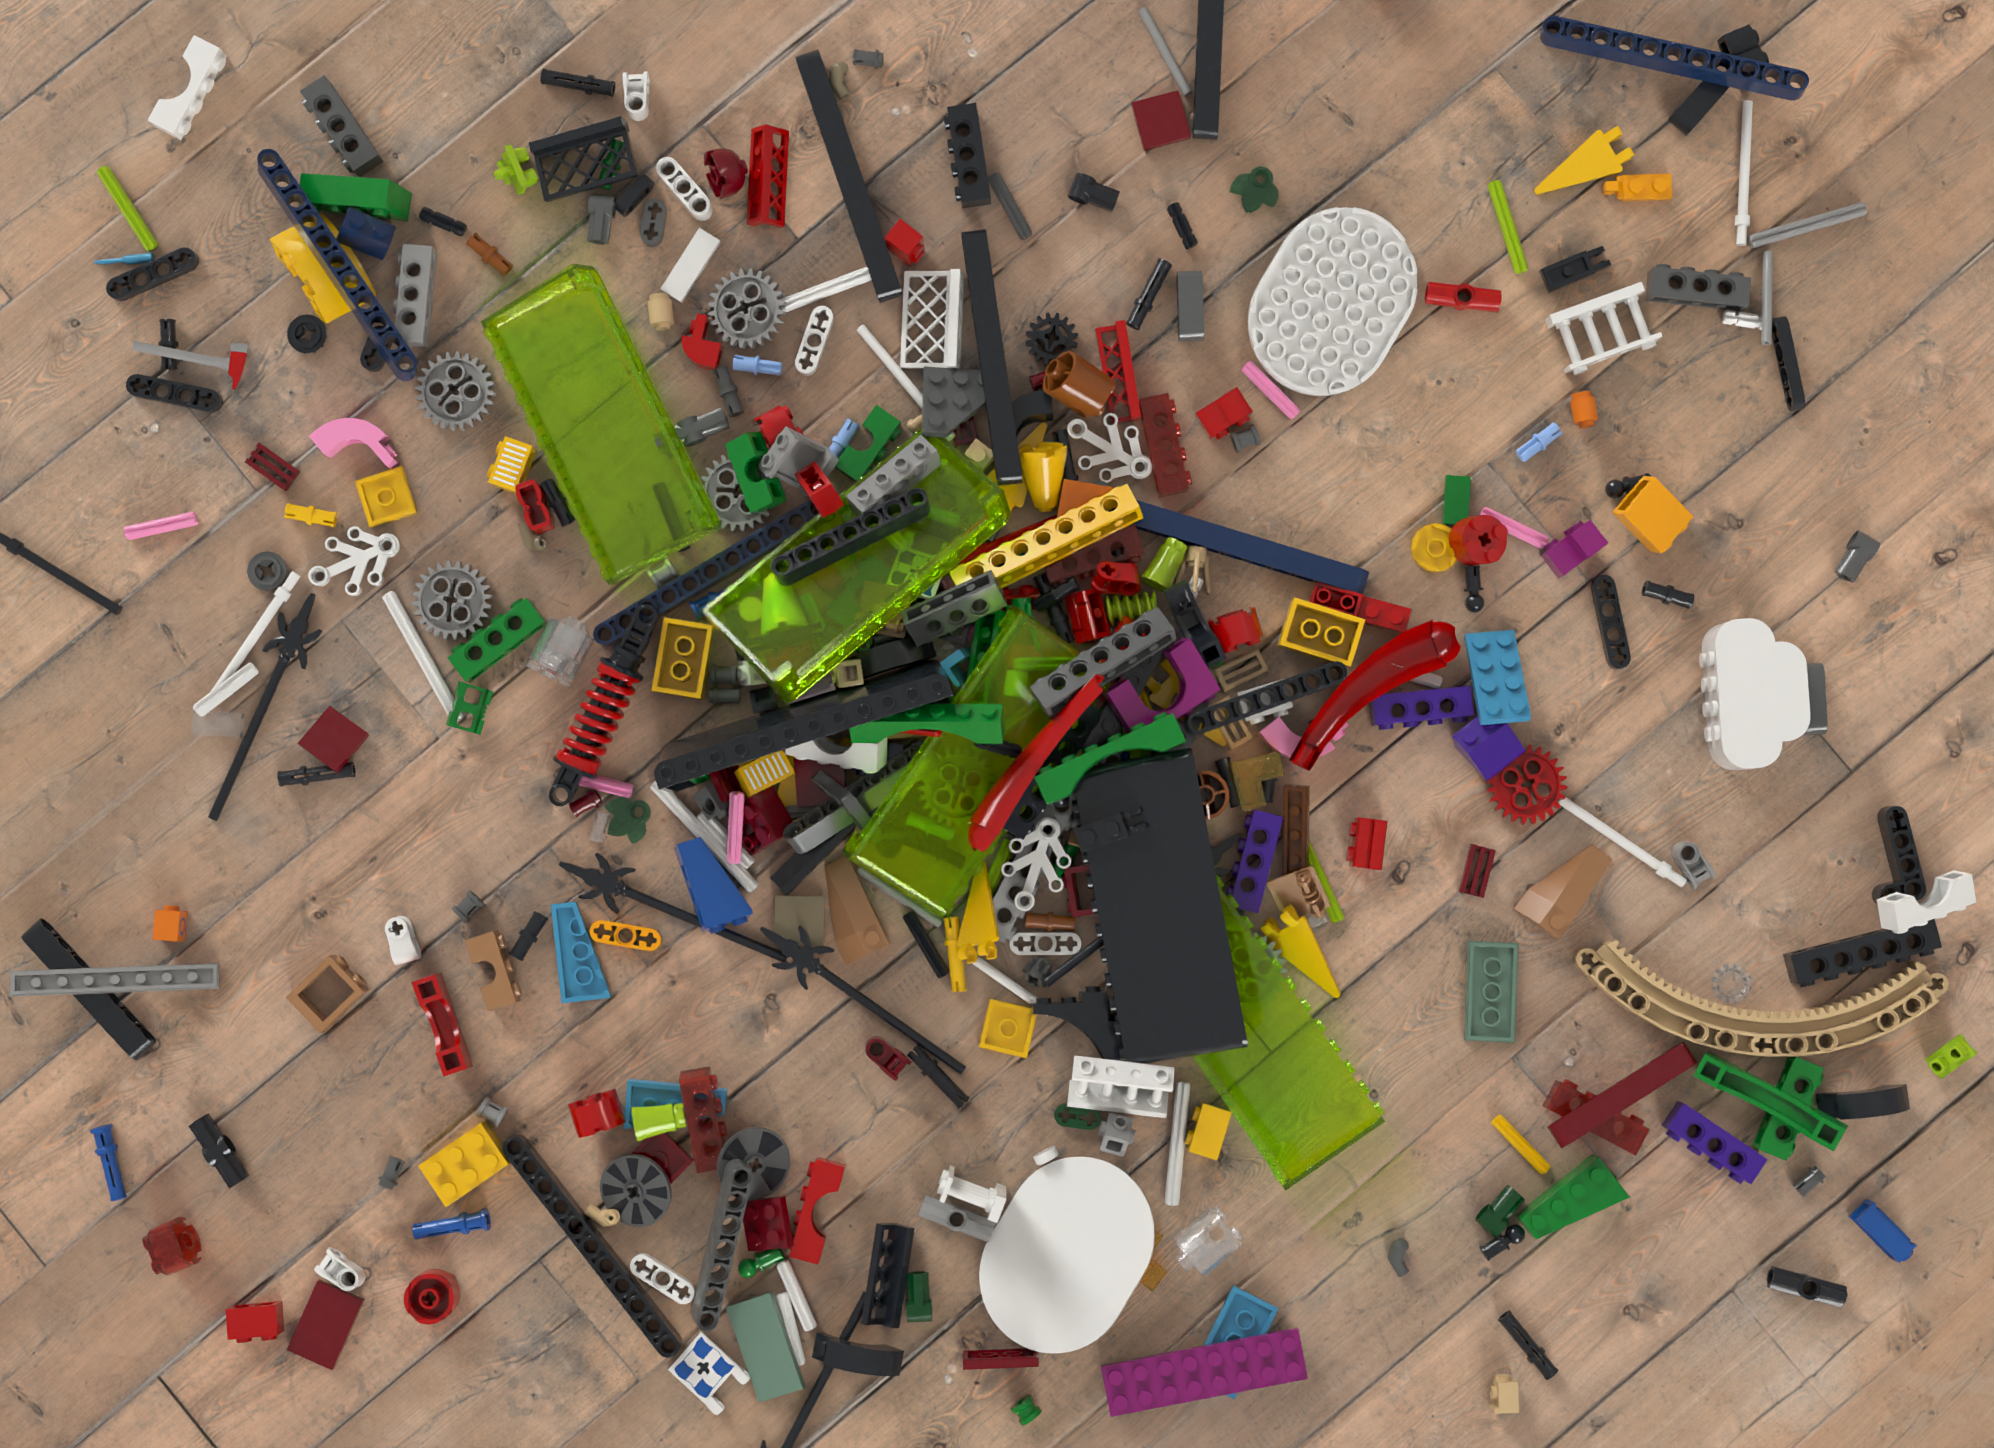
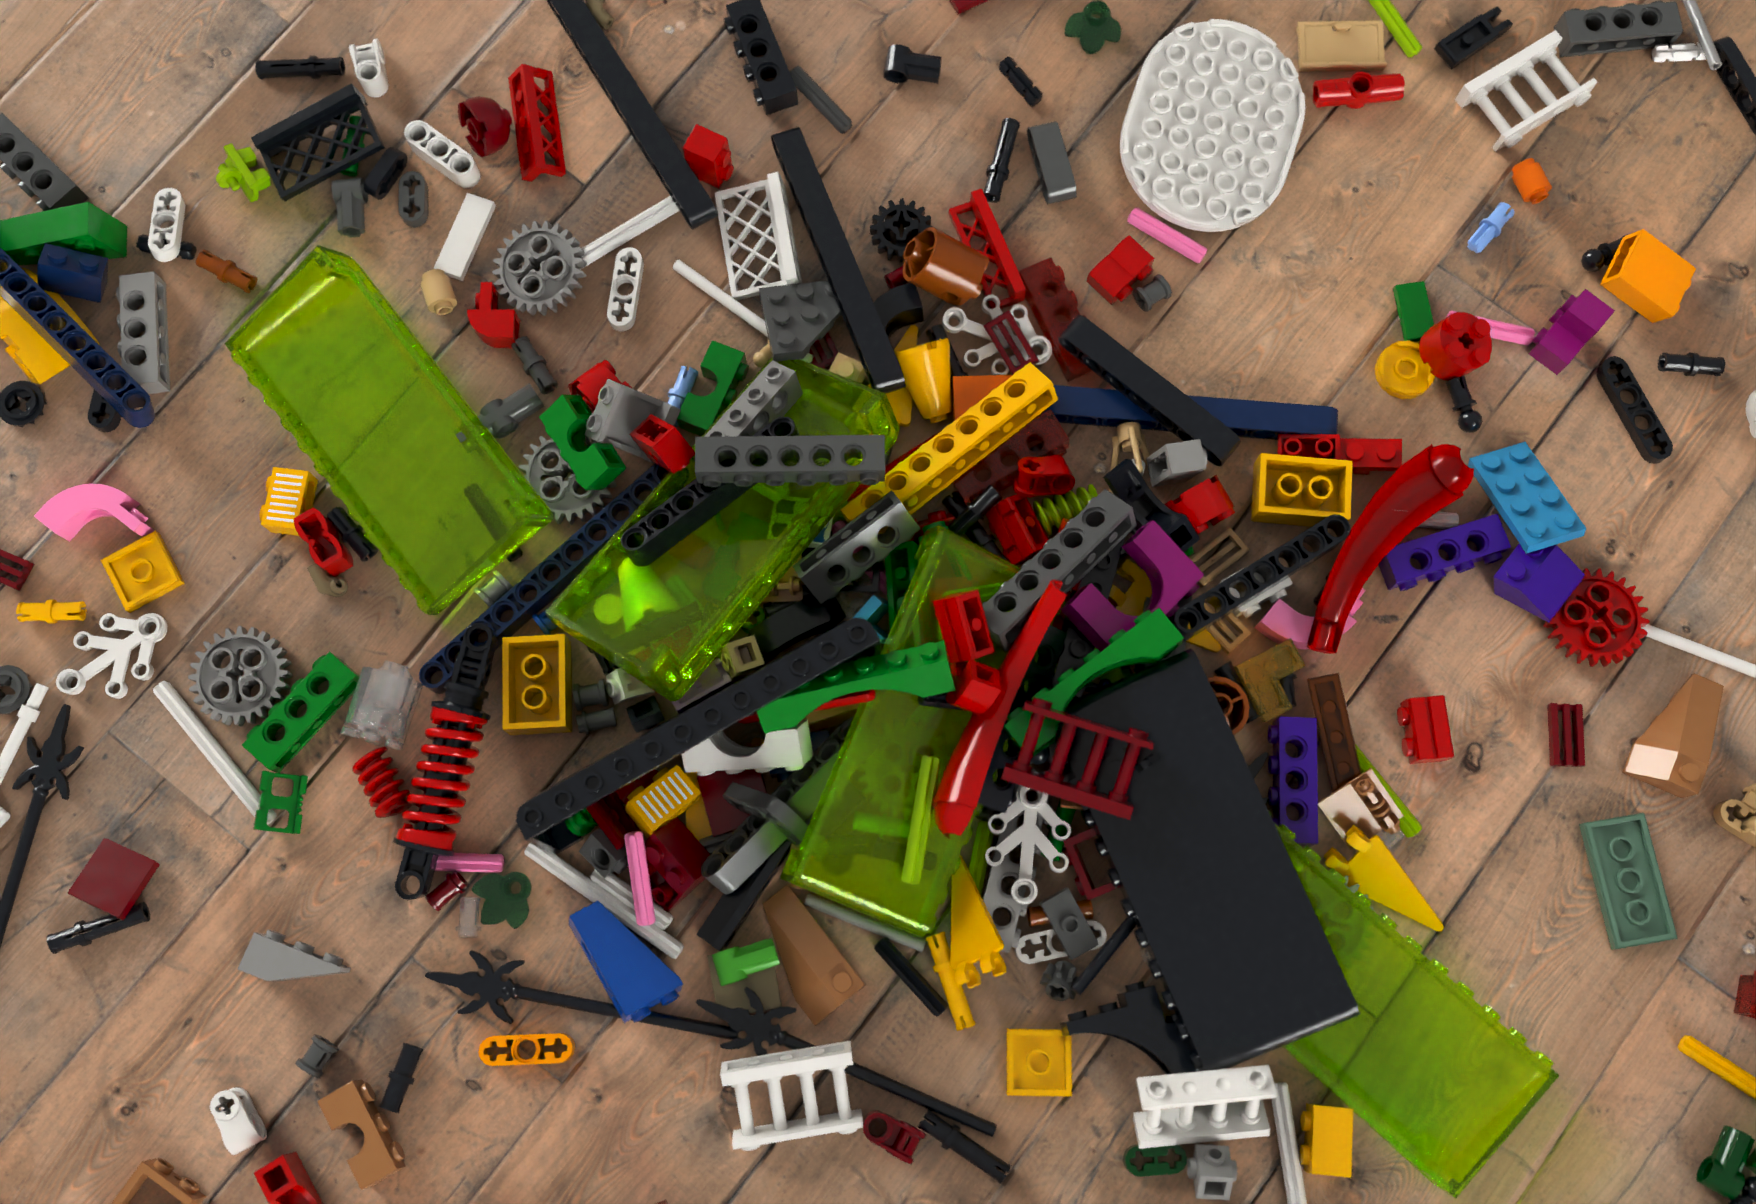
camera: 10 degrees left, 10 degrees down
(442, 375) = (189, 415): light grey gear -> none
(444, 194) = (172, 234): none -> white beam
(448, 828) = (277, 960): none -> light grey slope
(549, 710) = (380, 784): none -> red piece
(577, 961) = (468, 1094): dark azure wing -> none
(756, 365) = (563, 329): light blue axle -> none
(797, 906) = (738, 963): none -> bright green piece
(817, 988) = (771, 1069): none -> white fence
(856, 509) = (776, 449): none -> dark grey brick
(957, 831) = (921, 820): none -> lime axle
(1005, 980) = (1022, 1002): white bar -> none
(1018, 742) = (974, 686): none -> red brick
(1020, 694) = (963, 626): none -> red brick
(1053, 931) = (1068, 923): none -> dark grey plate
(1061, 828) = (1084, 791): none -> dark red fence
(1124, 445) = (998, 321): none -> dark red tile
(1164, 565) = (1095, 453): lime plant -> none
(1218, 525) = (1148, 389): none -> black beam
(1226, 589) = (1176, 462): none -> light grey brick
(1461, 255) = (1341, 50): none -> tan door

